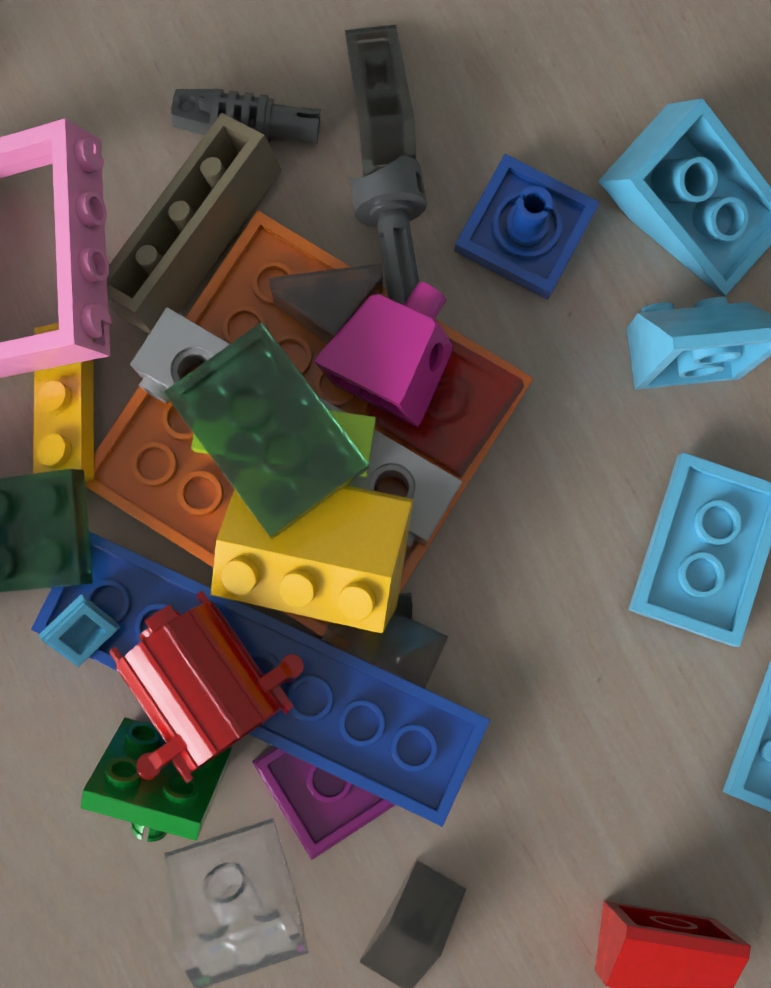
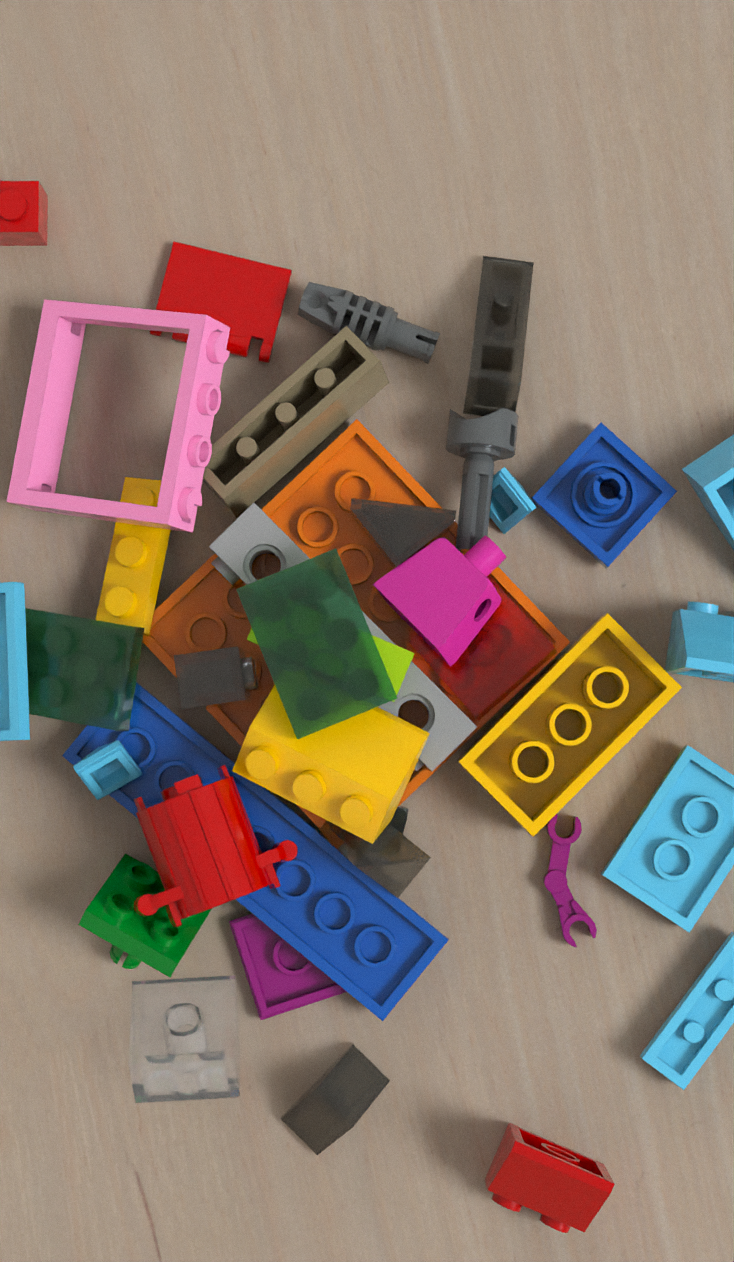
camera: 20 degrees right, 5 degrees up
(118, 116) = (228, 289): none -> red piece
(167, 499) = (215, 678): none -> clear smoke brick
(433, 254) = (508, 501): none -> medium azure slope
(556, 460) = (569, 724): none -> yellow brick
(585, 630) = (556, 881): none -> magenta piece

